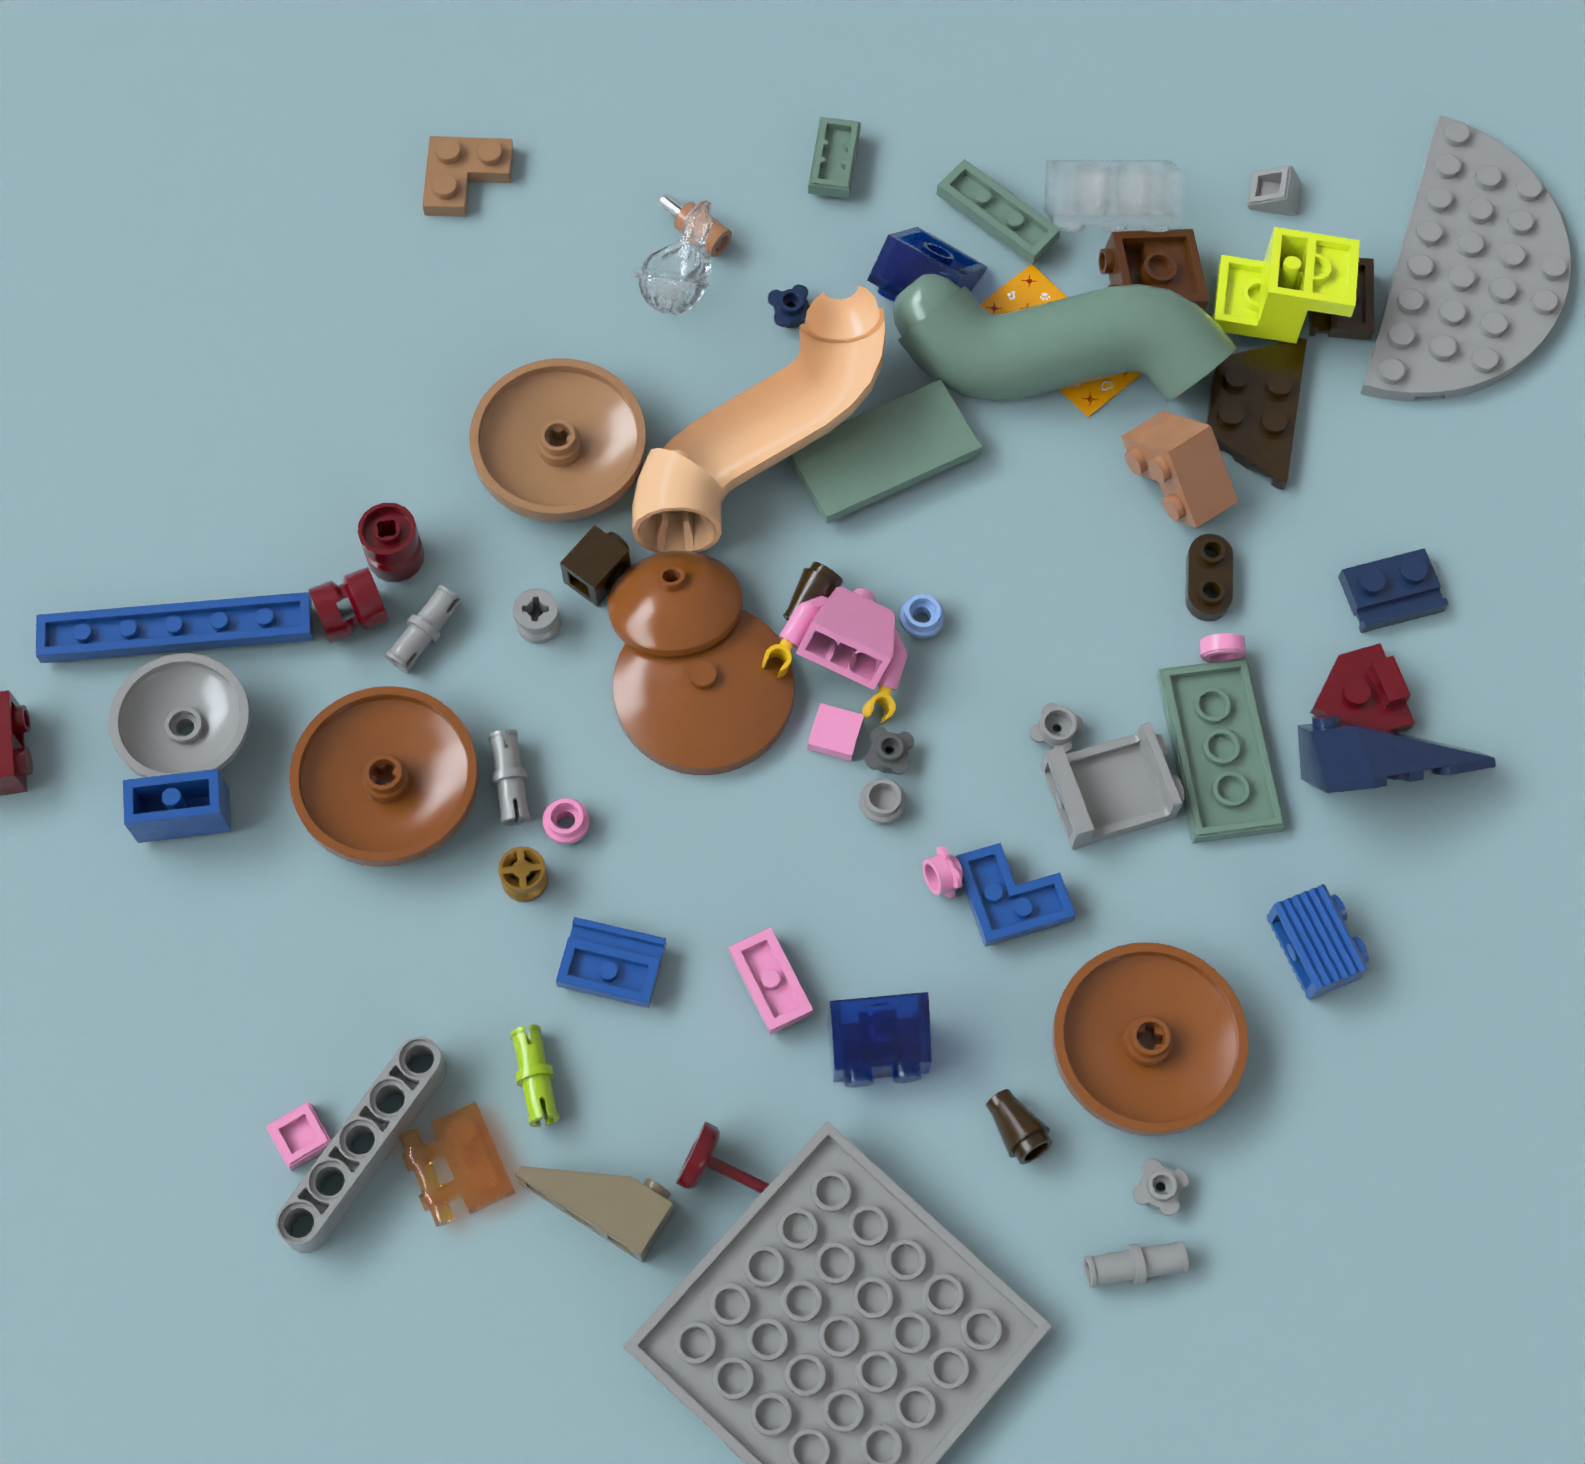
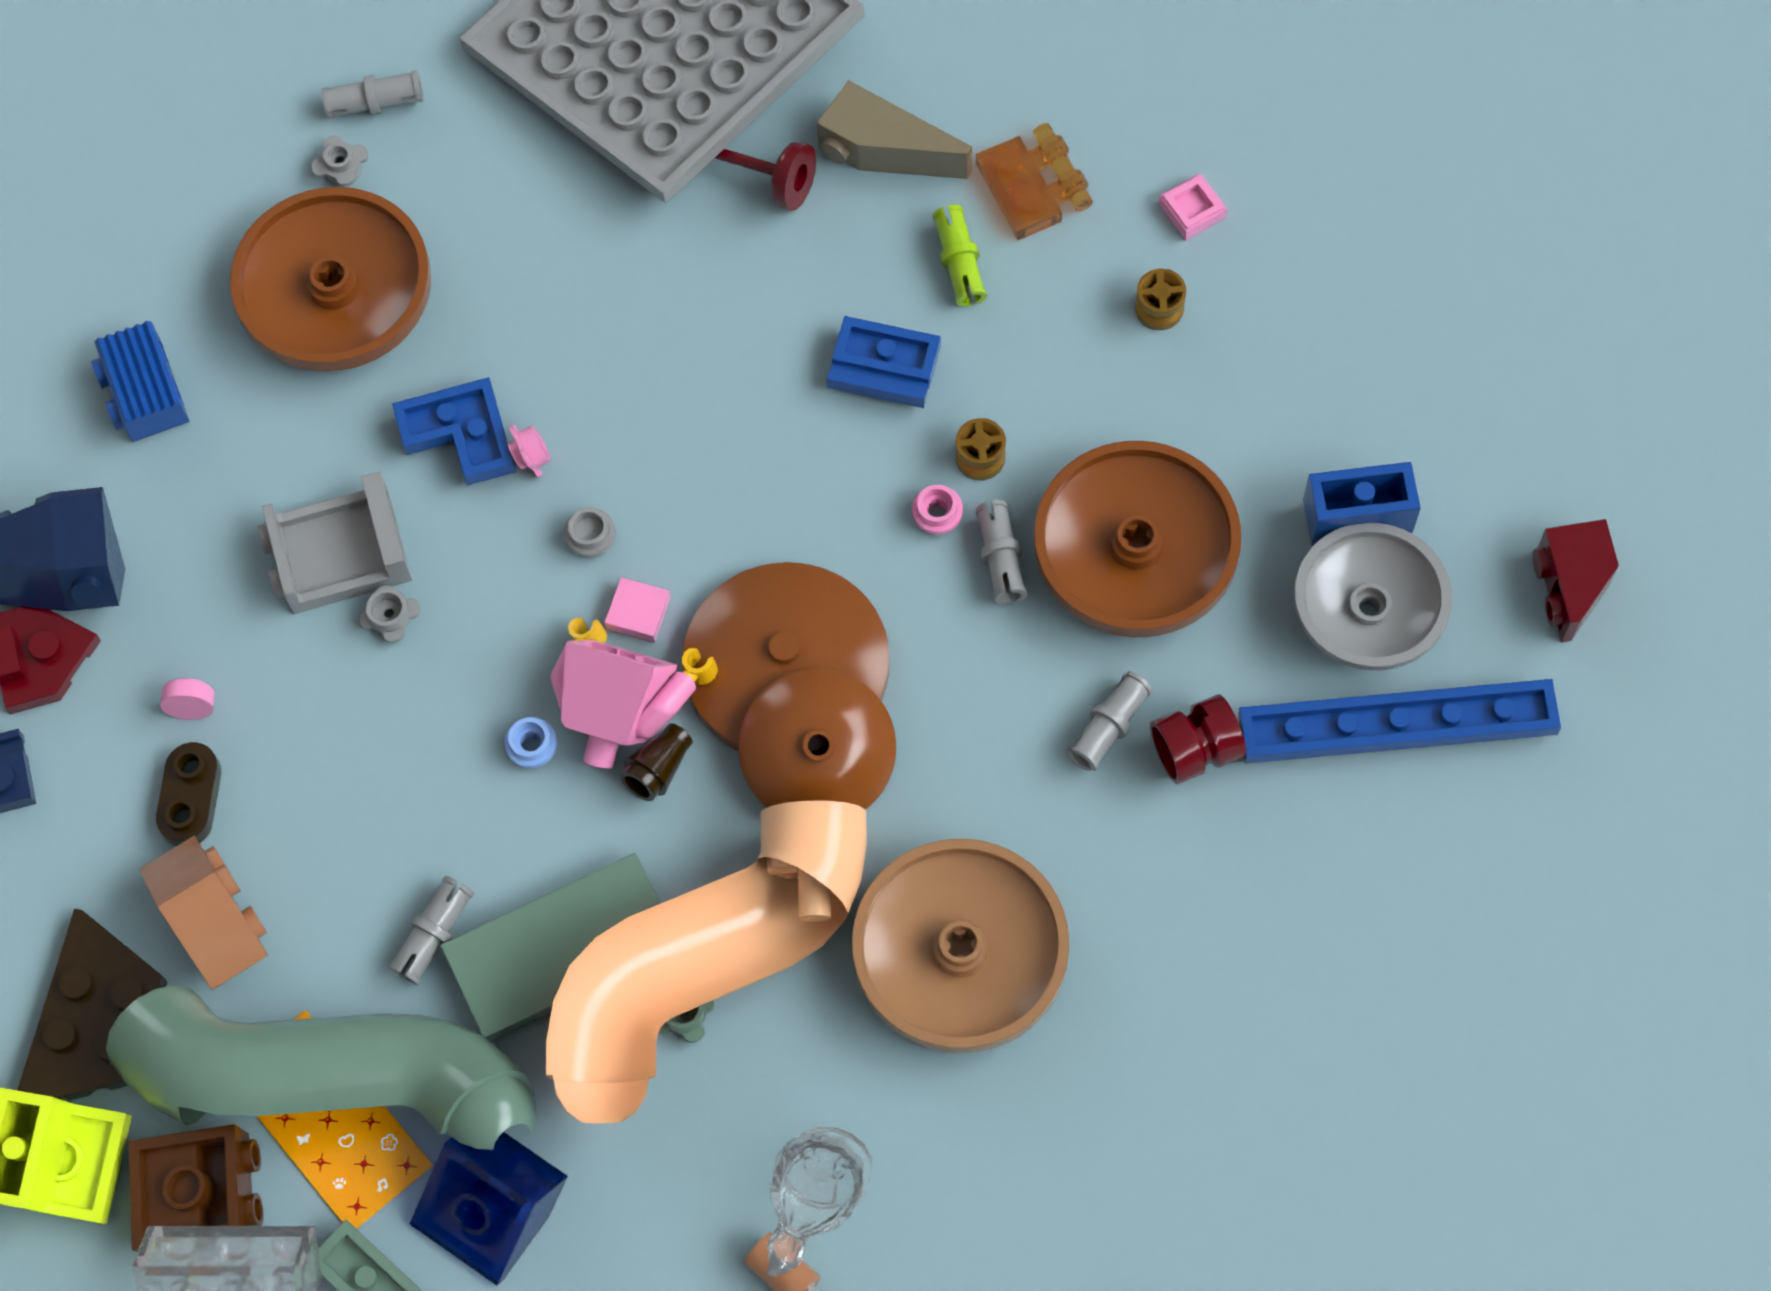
camera: 175 degrees left, 0 degrees up
(338, 1016) = (1168, 290): none -> pearl gold wheel
(360, 1168) = (1121, 208): light grey beam -> none
(391, 542) = (1154, 813): dark red wheel -> none
(544, 623) = (978, 748): light grey wheel -> none
(595, 564) = (910, 794): dark brown brick -> none
(770, 981) = (717, 344): bright pink plate -> none
(789, 316) = (680, 1165): dark blue plate -> none
(880, 1038) = (607, 281): clear blue slope -> none
(889, 763) = (580, 599): dark grey plate -> none
(991, 465) = (431, 930): none -> light grey pin
(1019, 1128) = (473, 209): dark brown cone -> none
(1220, 750) = (210, 592): sand green tile -> none

